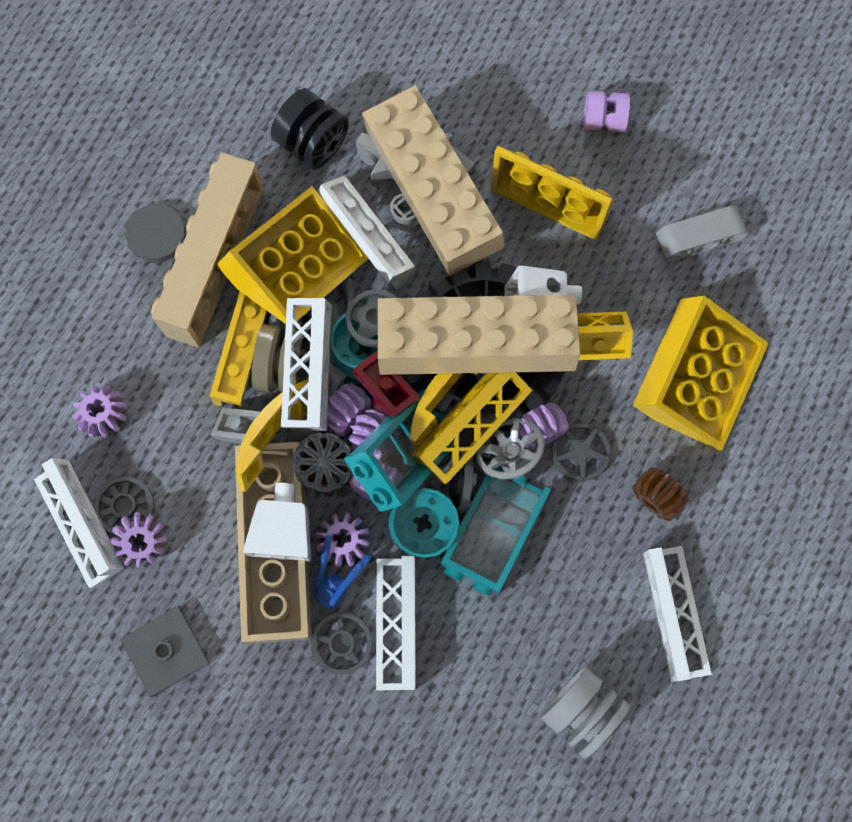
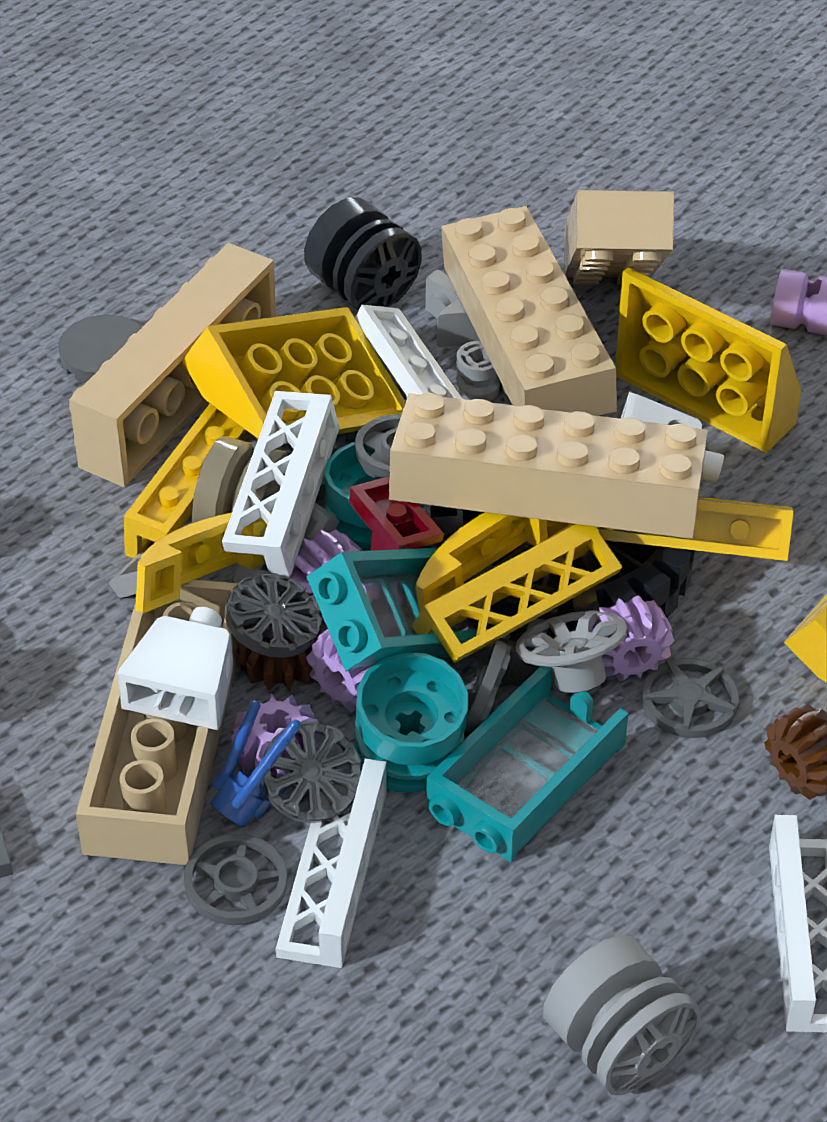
camera: 10 degrees right, 30 degrees down
(373, 569) = (312, 773): none -> dark grey wheel
(485, 113) = (617, 232): none -> tan brick

